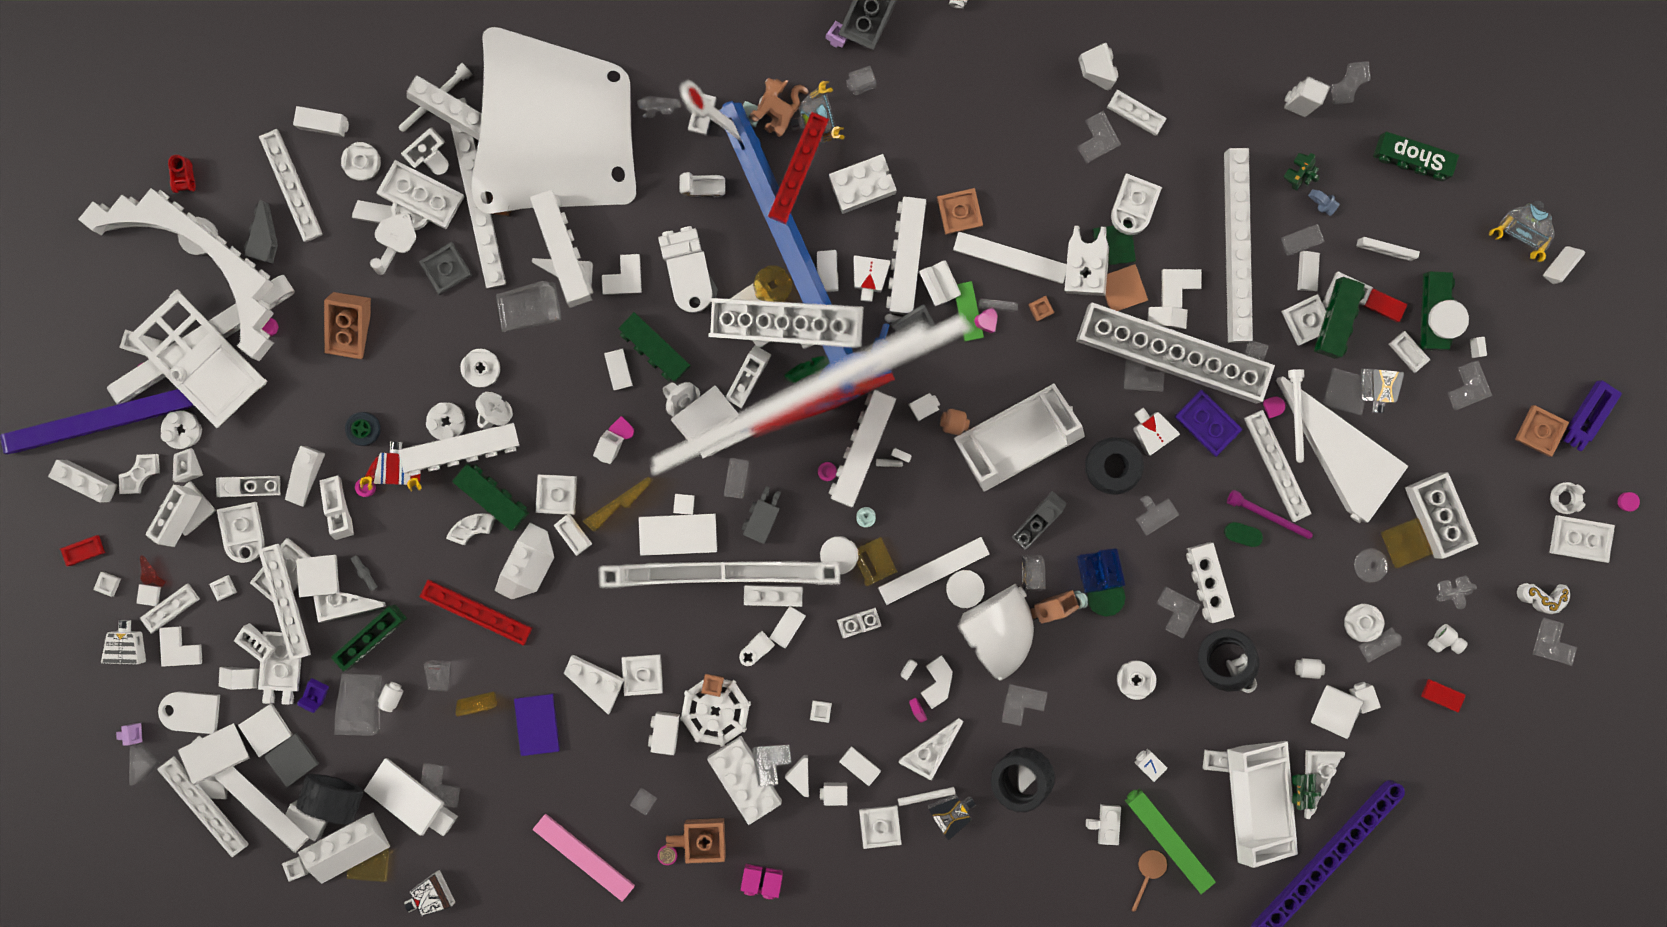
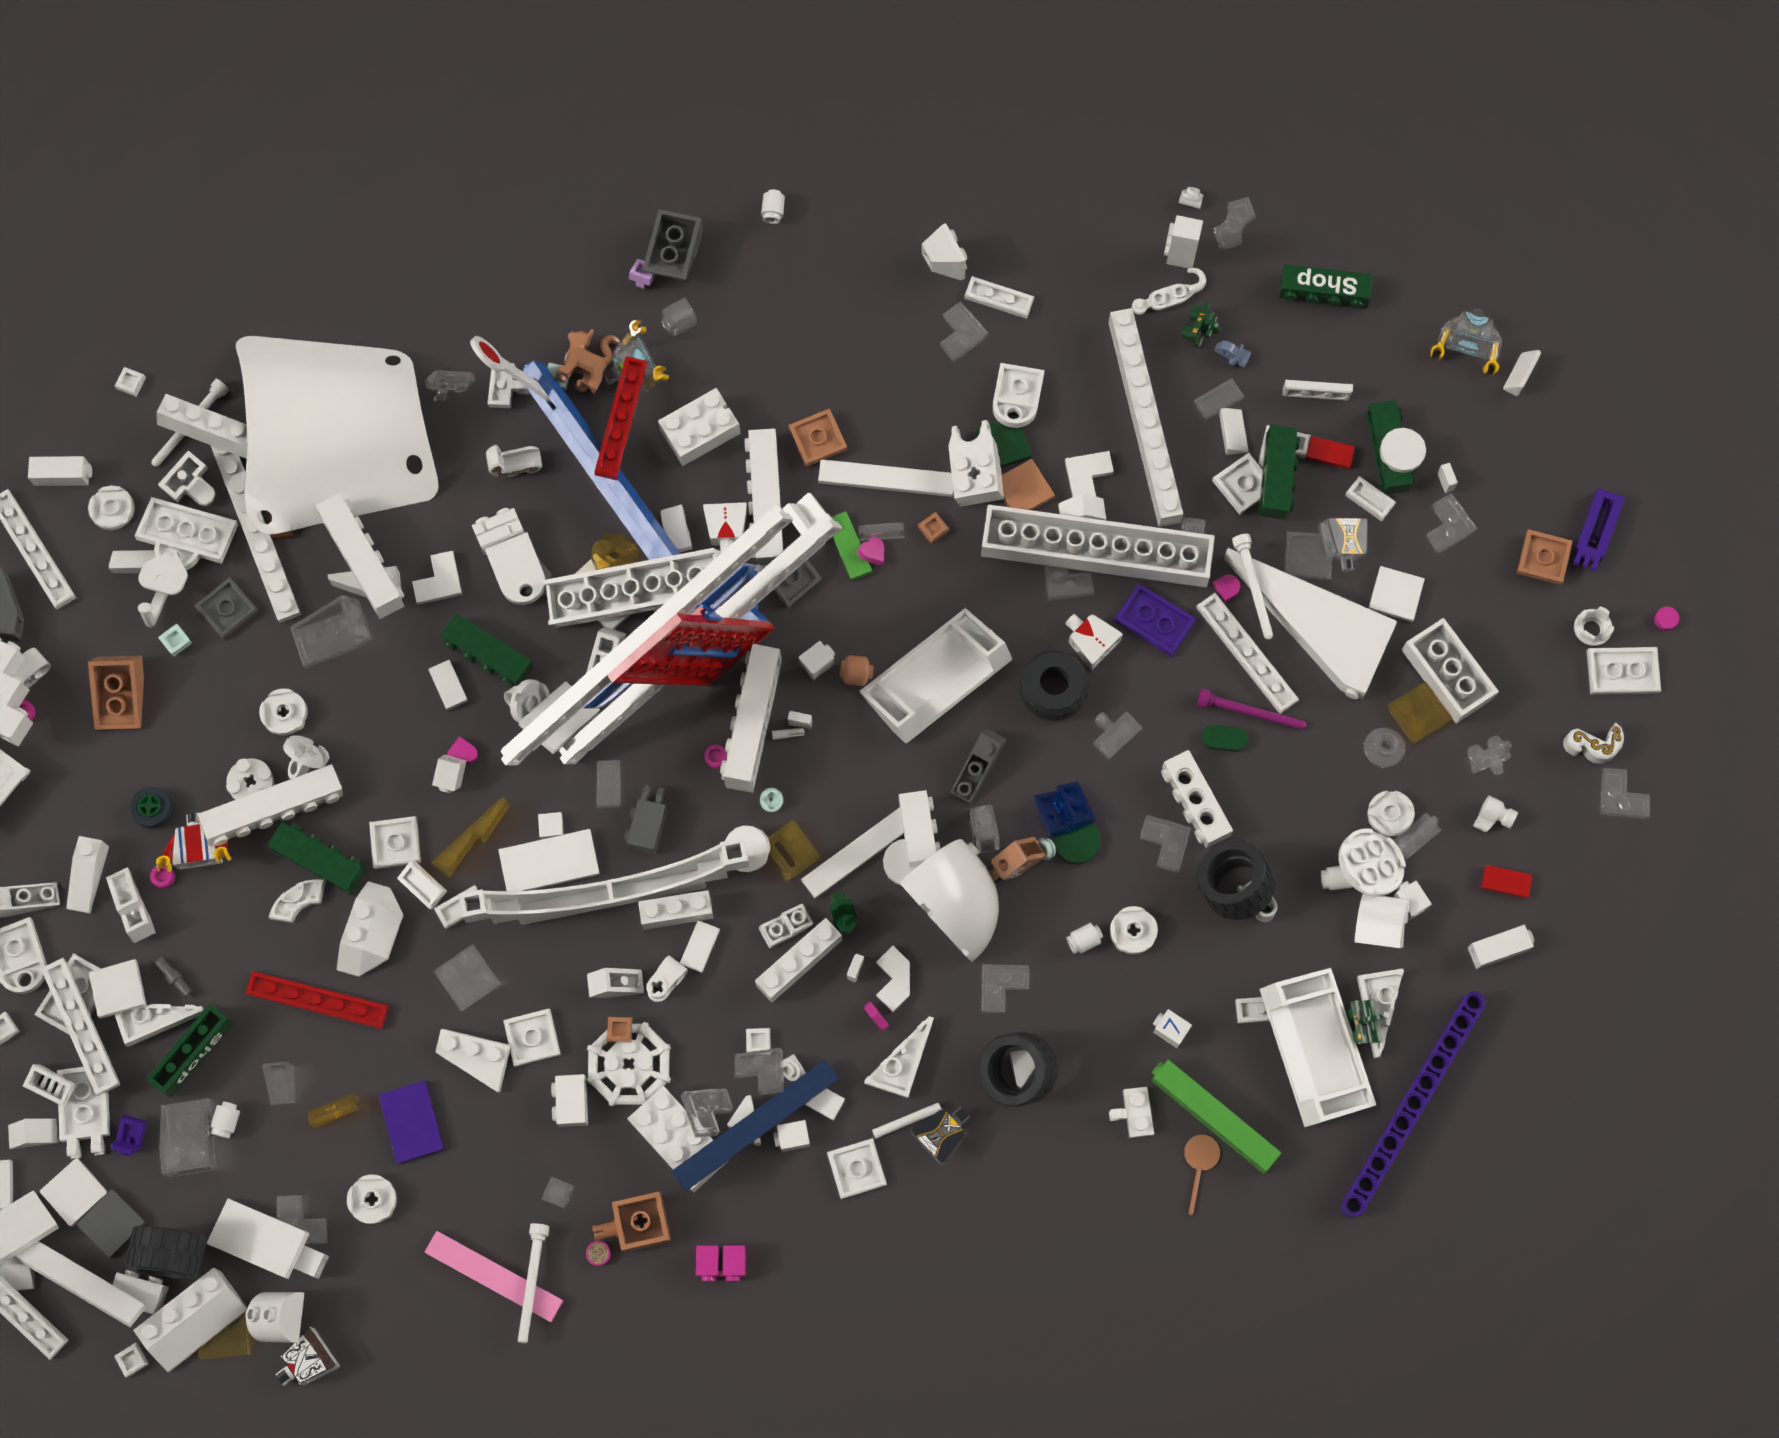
camera: 15 degrees left, 15 degrees down
(389, 50) = (130, 381): none -> white tile
(399, 289) = (175, 640): none -> light aqua plate
(410, 859) = (275, 1316): none -> white brick
(505, 788) = (361, 1190): none -> white plate
(597, 618) = (467, 977): none -> clear slope
(601, 557) = (450, 911): none -> white tile
(623, 832) = (538, 1234): none -> white piece
(715, 645) = (615, 982): none -> white slope
(807, 784) = (754, 1125): none -> dark blue tile
(824, 733) = (764, 1064): none -> clear tile
(844, 739) = (792, 1068): none -> white plate
(864, 655) = (798, 960): none -> white brick
(907, 626) = (843, 913): none -> dark green hips
(981, 566) = (918, 826): none -> white brick
(1096, 679) = (1084, 938): none -> white brick
(1282, 139) = (1170, 295): none -> white piece
(1319, 51) = (1191, 197): none -> white plate
(1340, 662) = (1371, 862): none -> white tile
(1411, 438) = (1396, 594): none -> white tile
(1427, 749) = (1501, 946): none -> white brick

